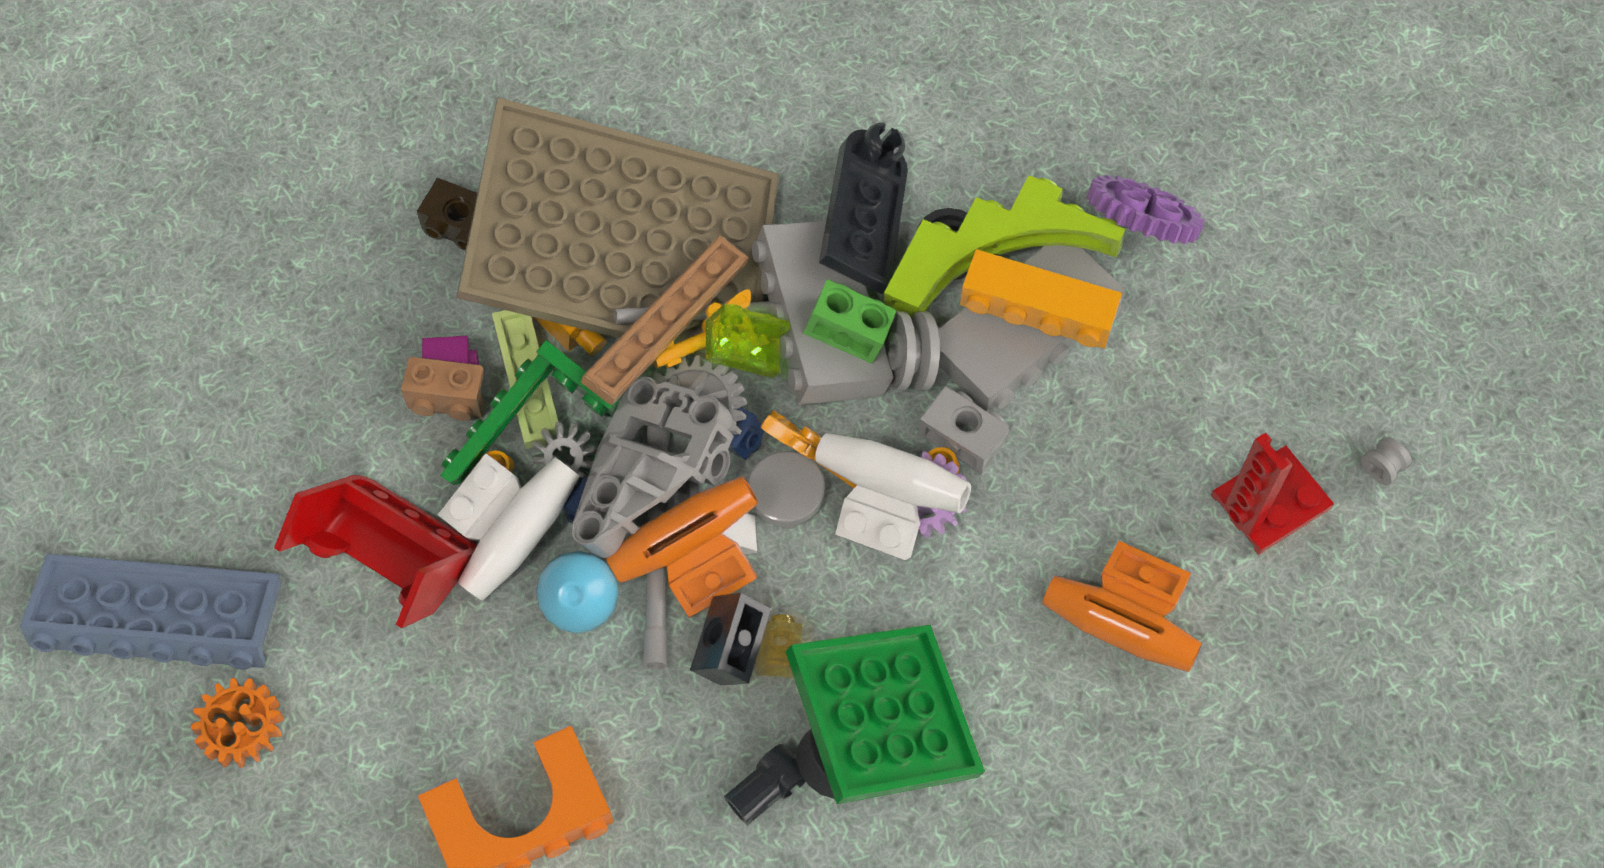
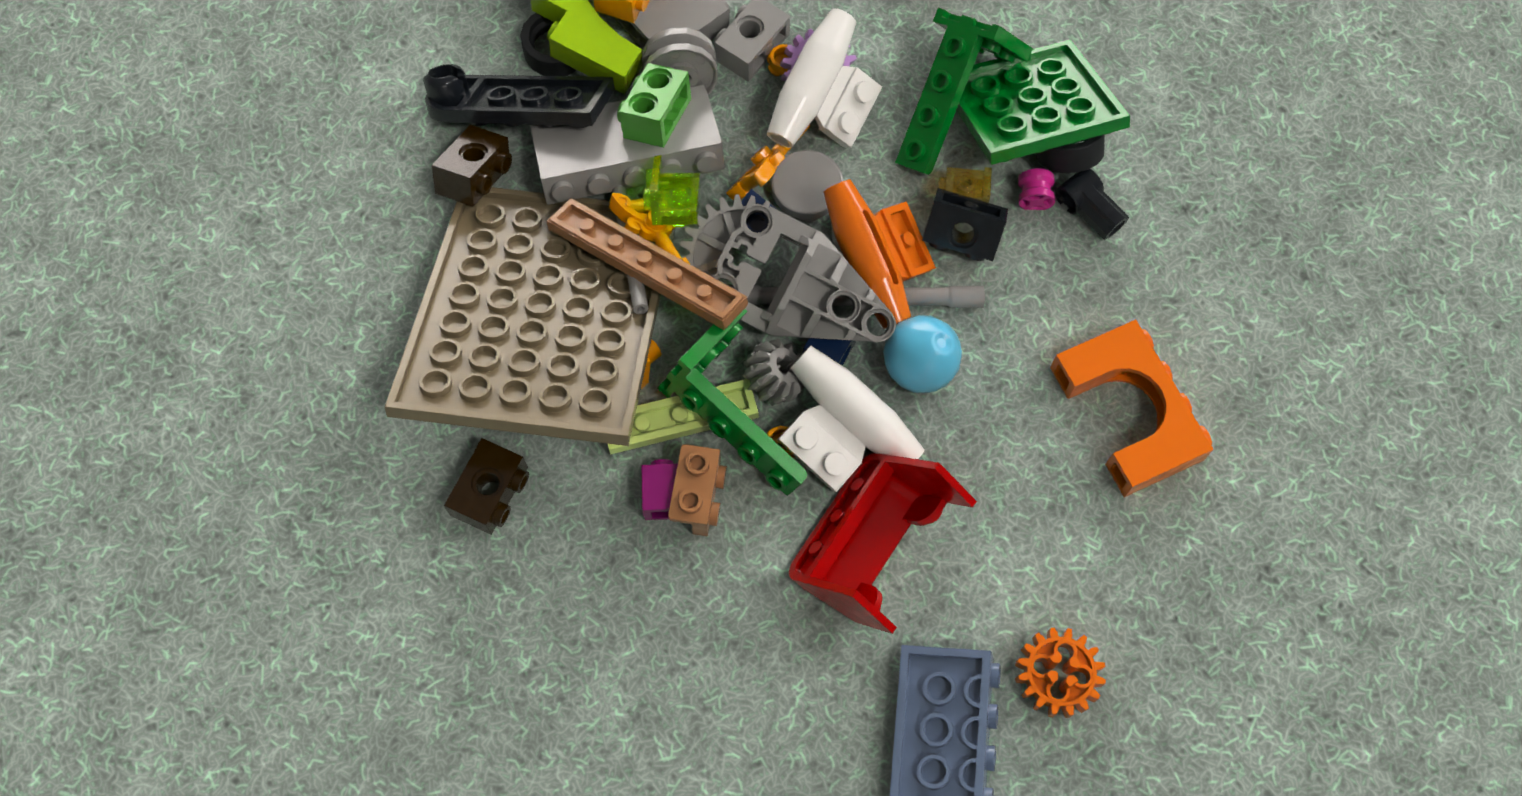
camera: 90 degrees left, 5 degrees up
(782, 723) = (1036, 189): none -> dark pink wheel
(808, 175) = (471, 165): none -> dark brown brick
(952, 632) = (947, 81): none -> green bracket

